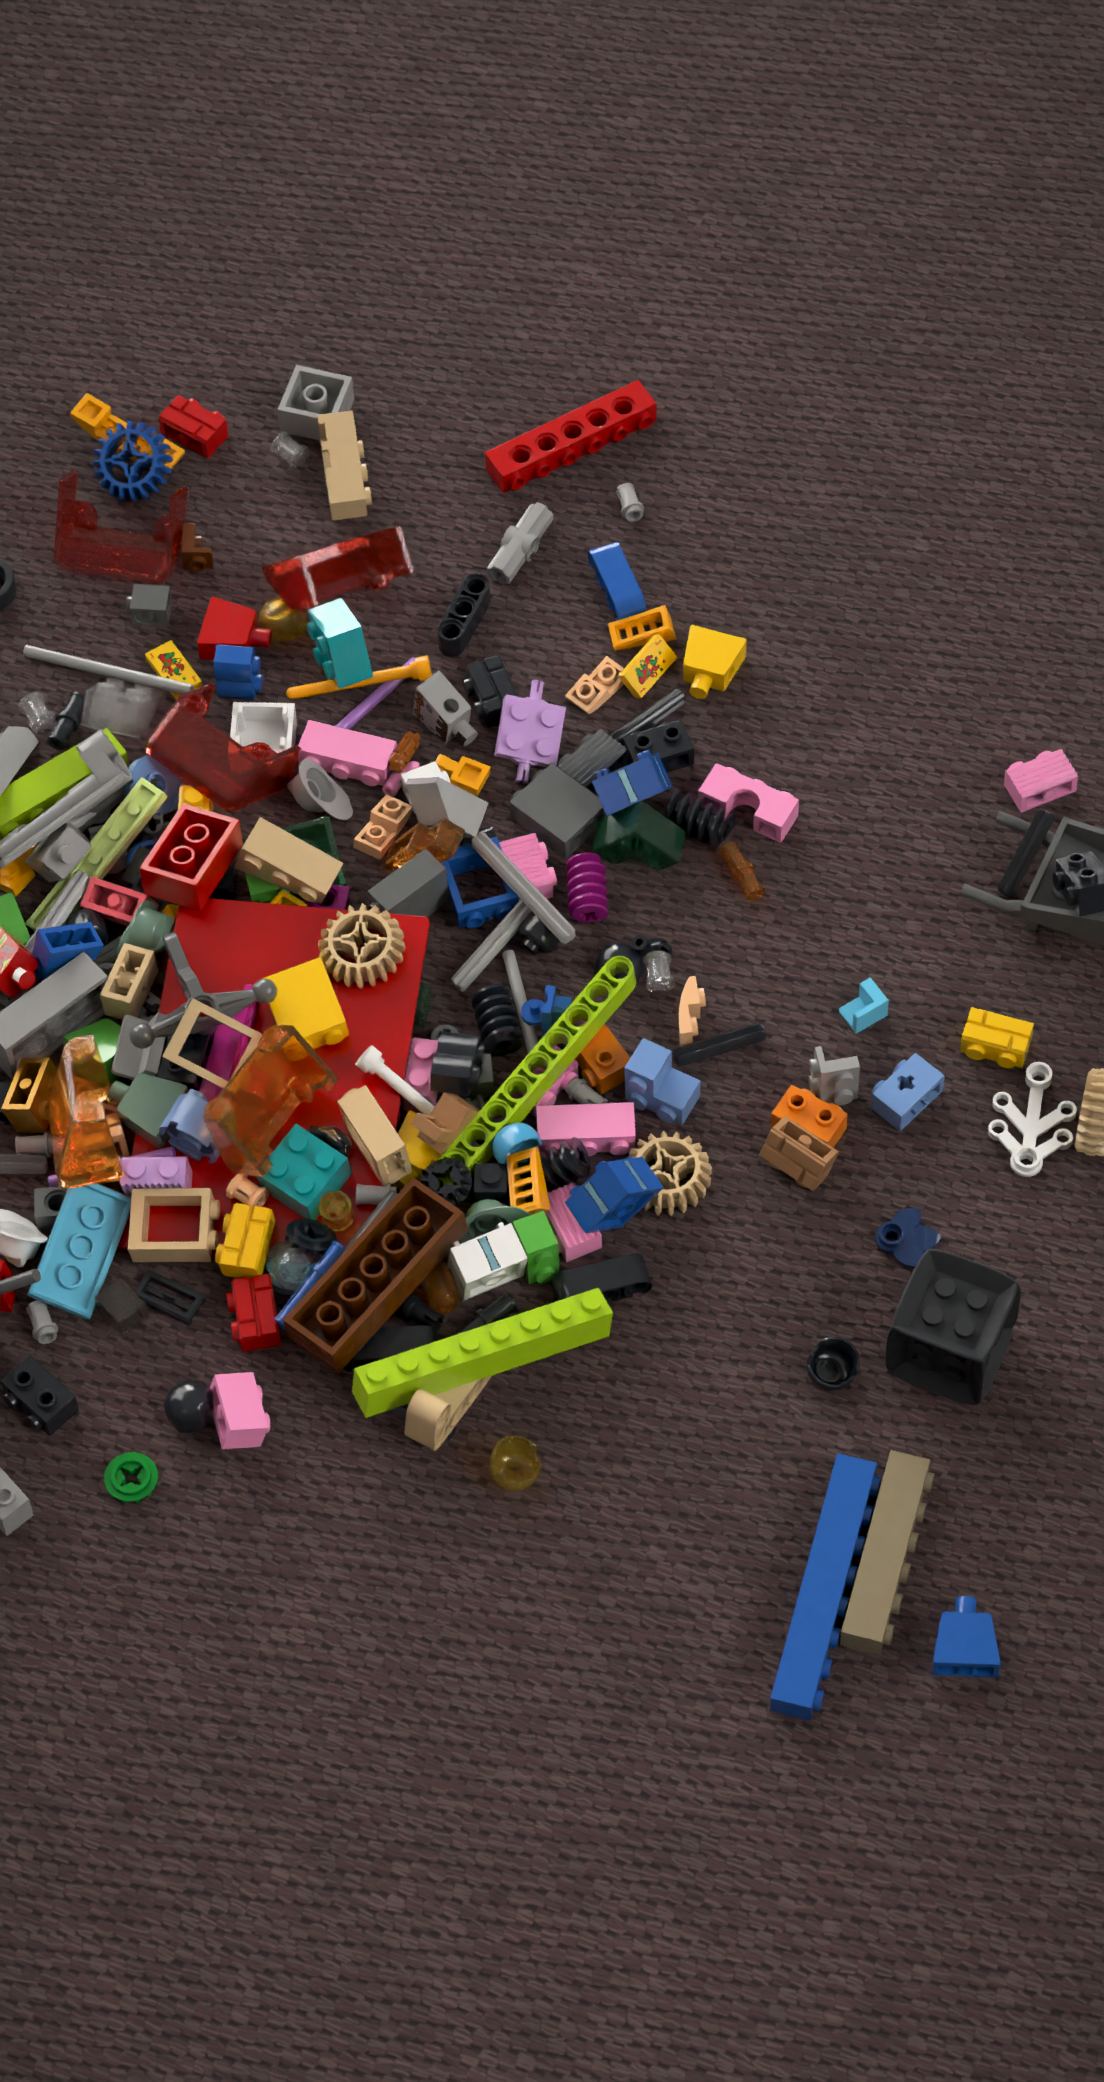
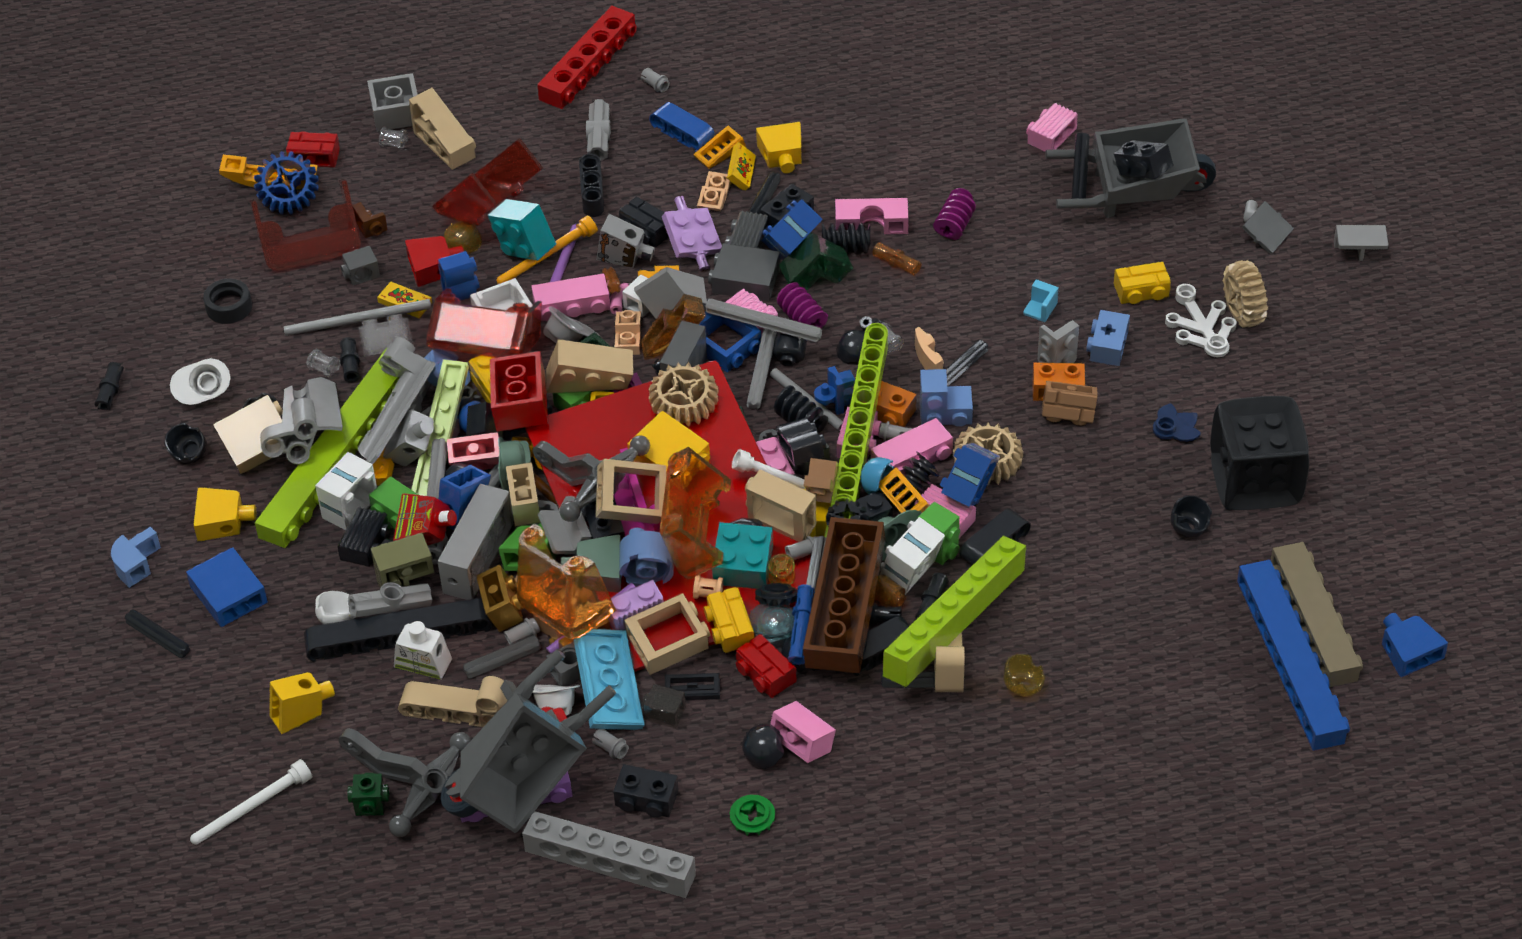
camera: 30 degrees left, 10 degrees down
(843, 844) = (955, 214): none -> magenta piece

